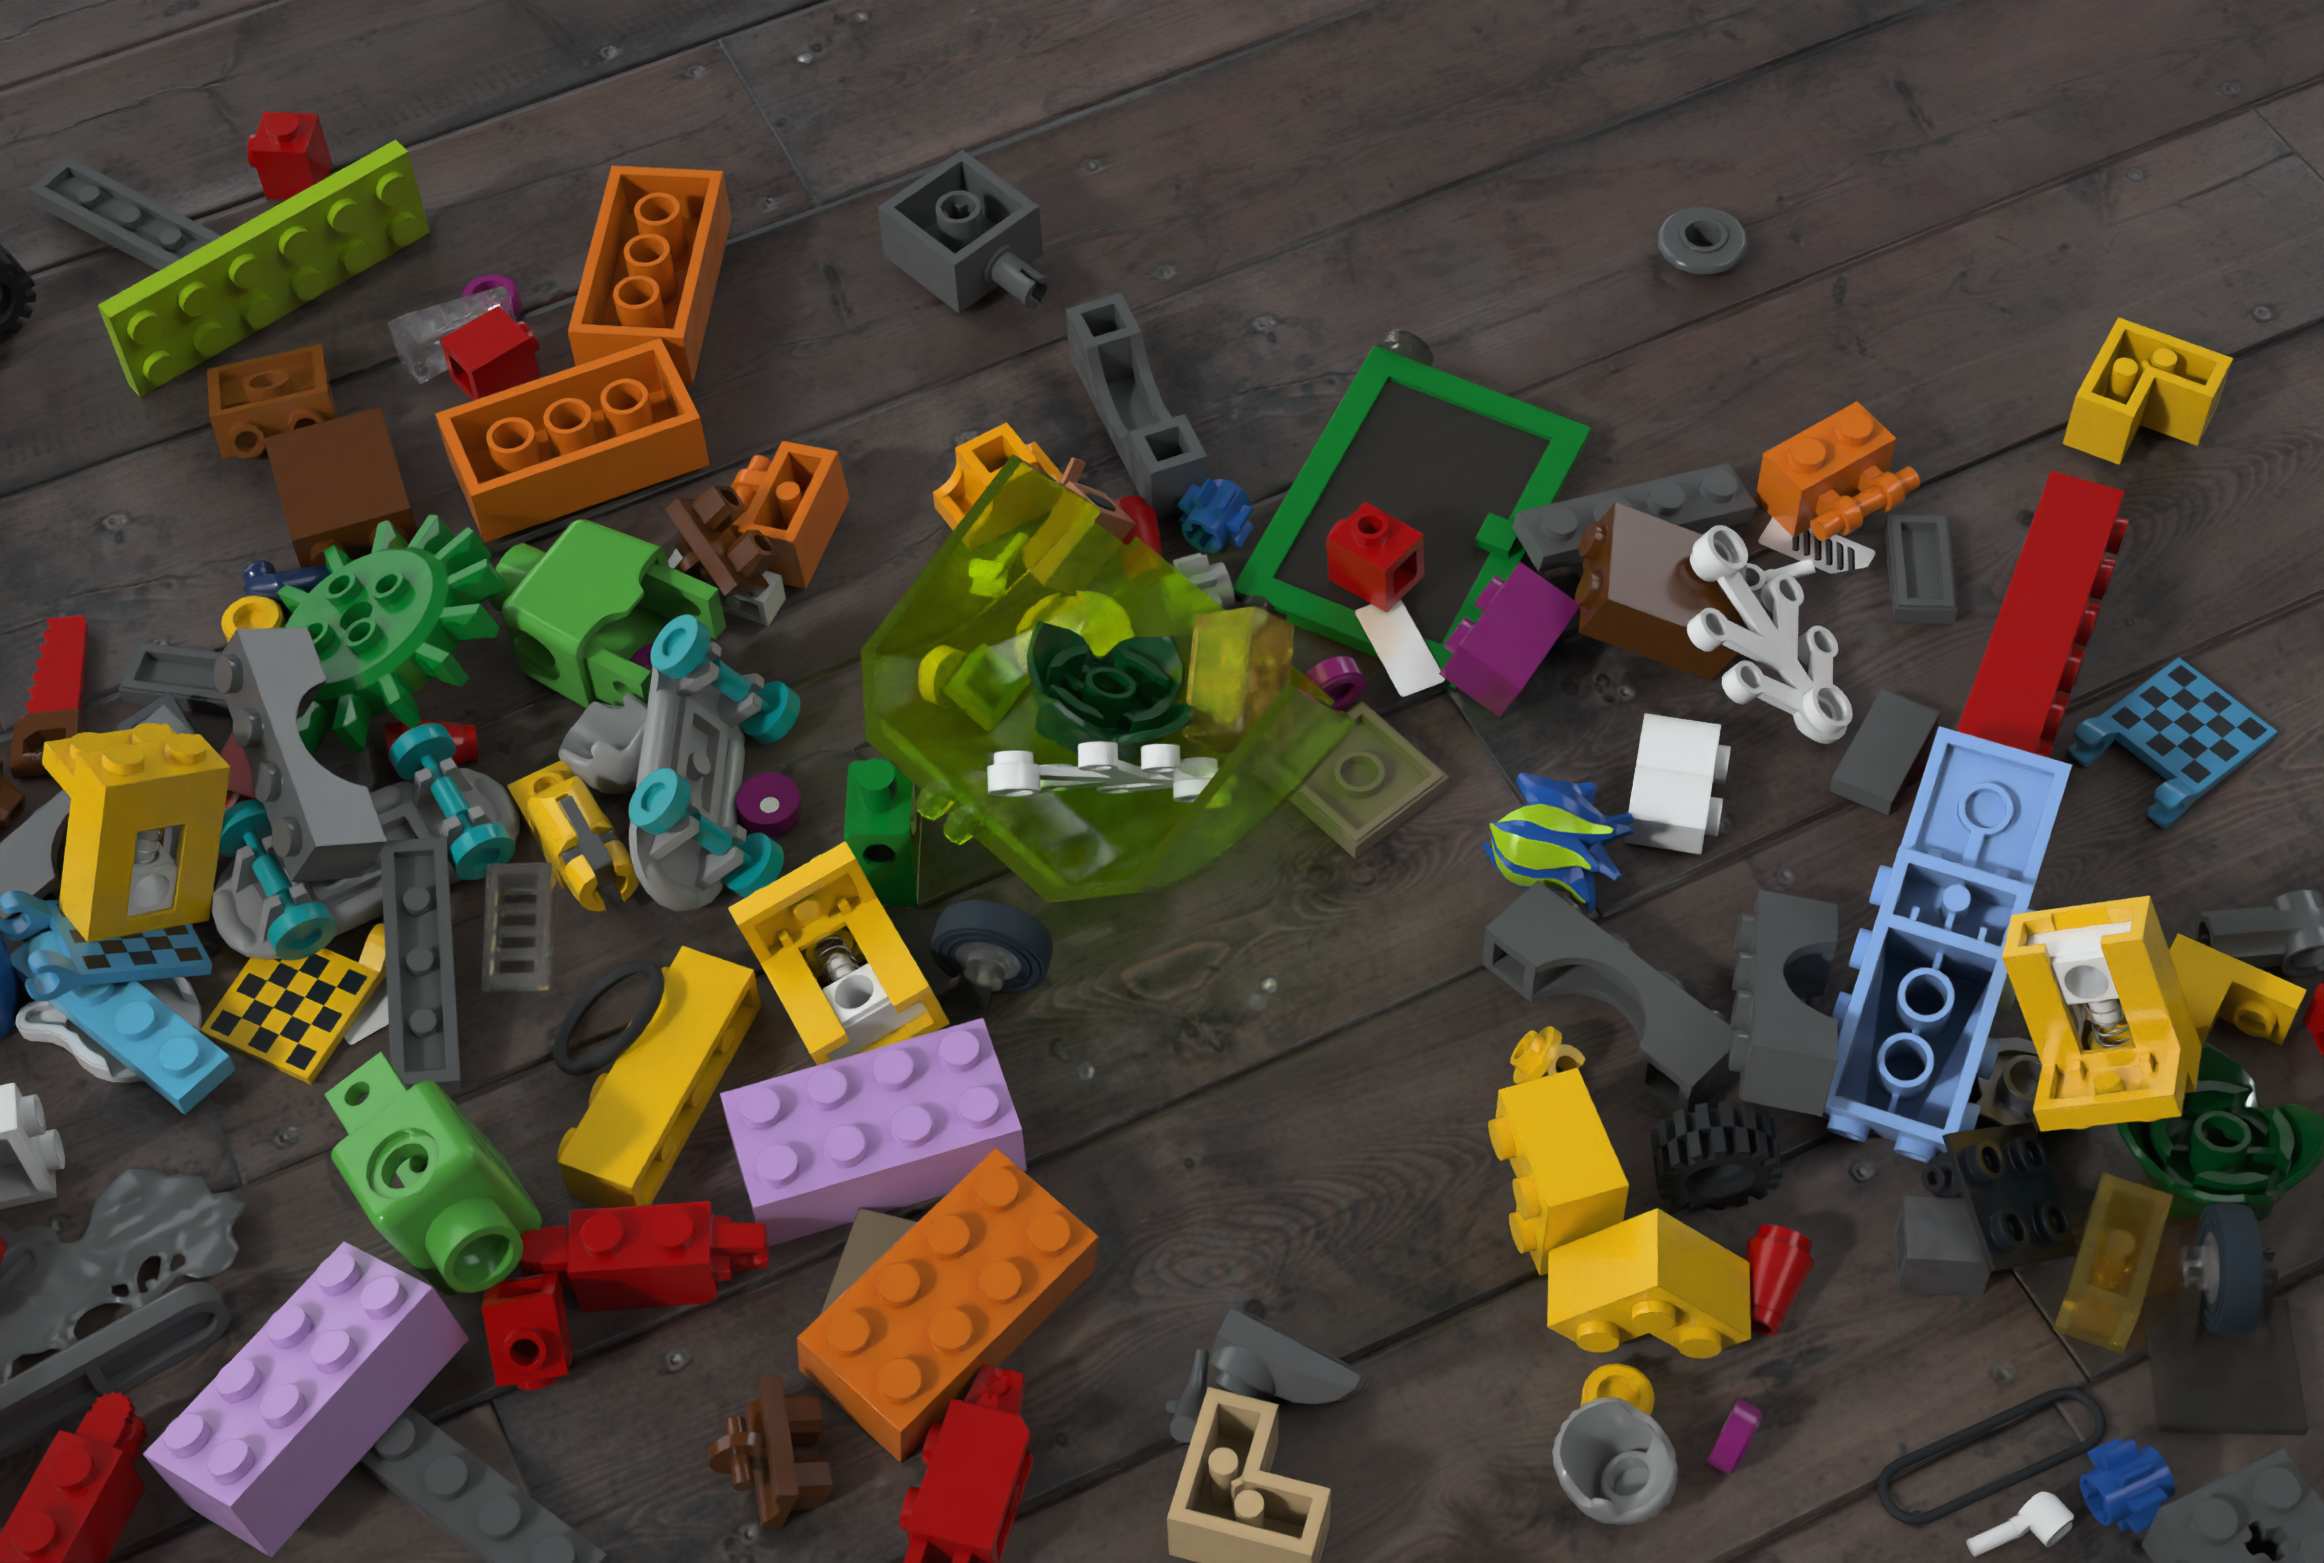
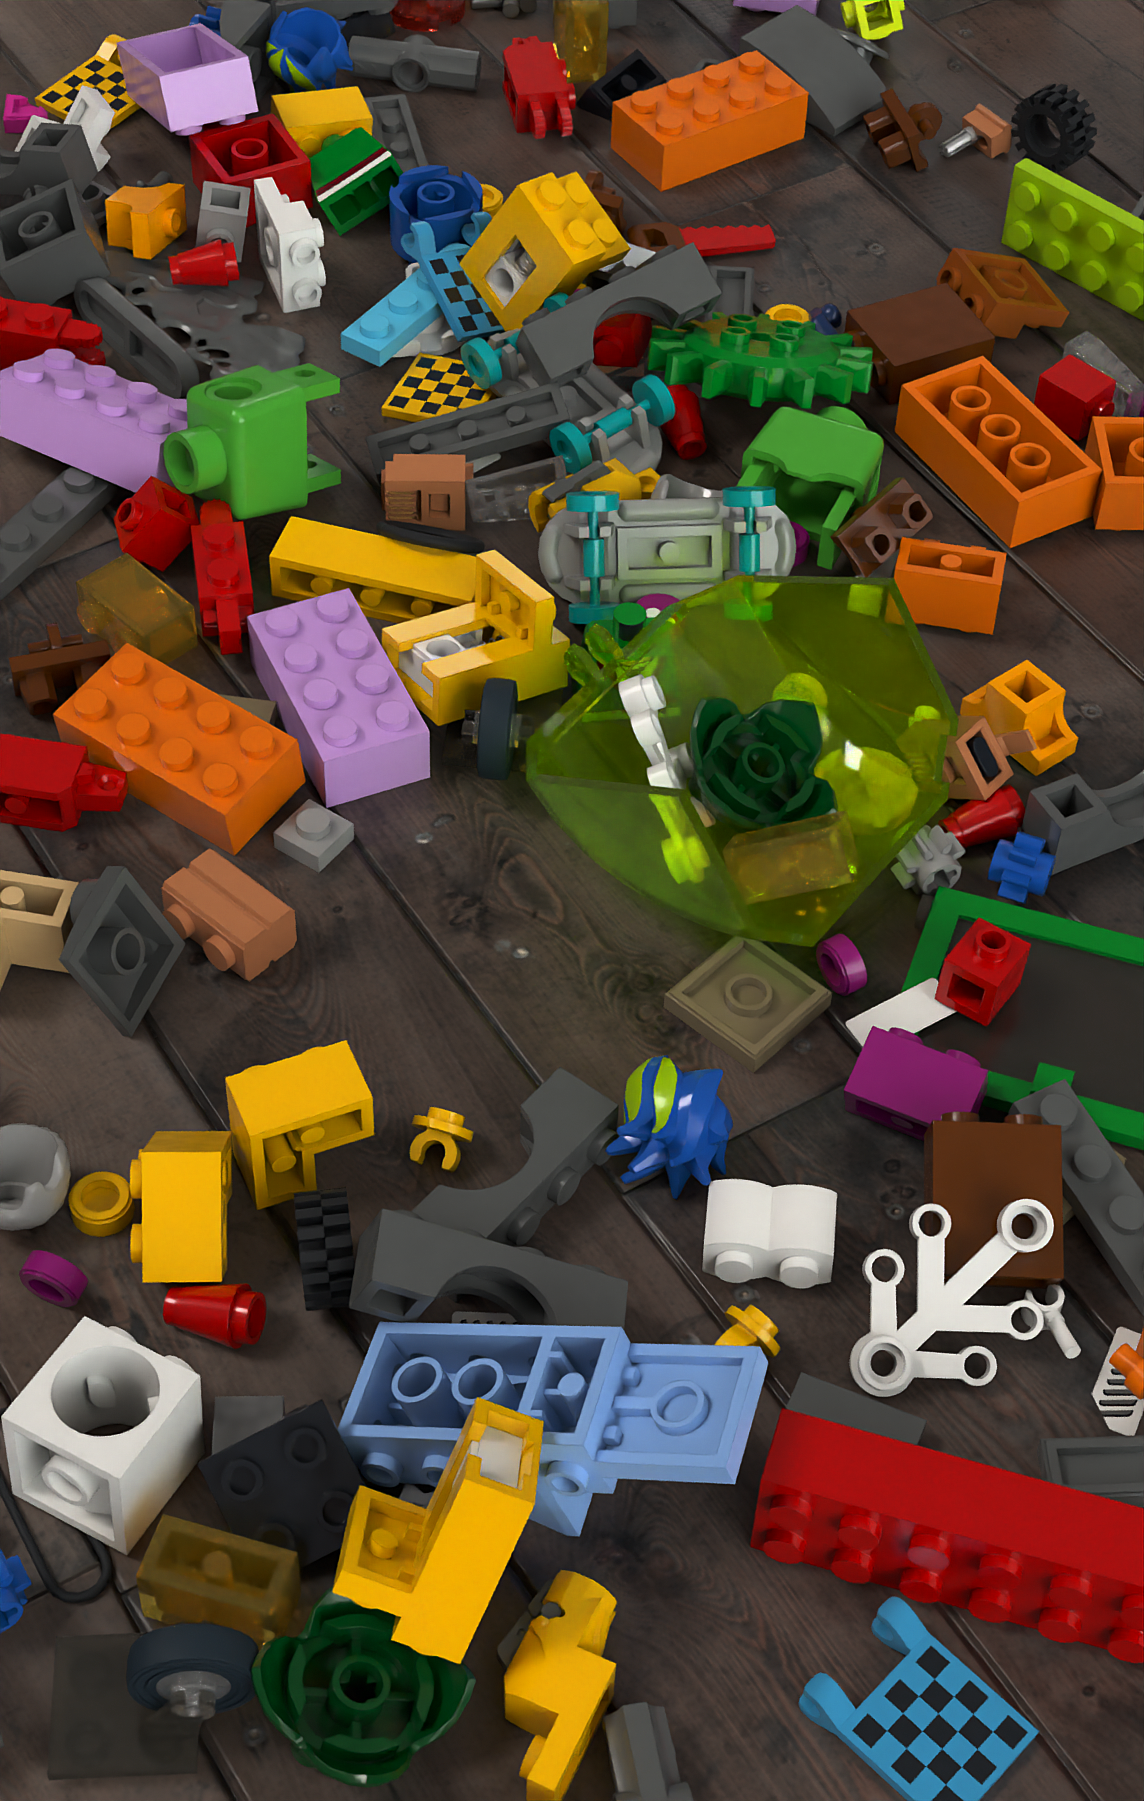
camera: 80 degrees right, 5 degrees down
(512, 1023) = (426, 489): none -> nougat piece
(682, 1363) = (135, 607): none -> clear yellow brick
(1083, 1176) = (313, 835): none -> light grey plate
(1218, 1259) = (228, 915): none -> nougat brick
(1800, 820) = (750, 1329): none -> yellow plate
(1970, 1301) = (105, 1482): none -> white brick

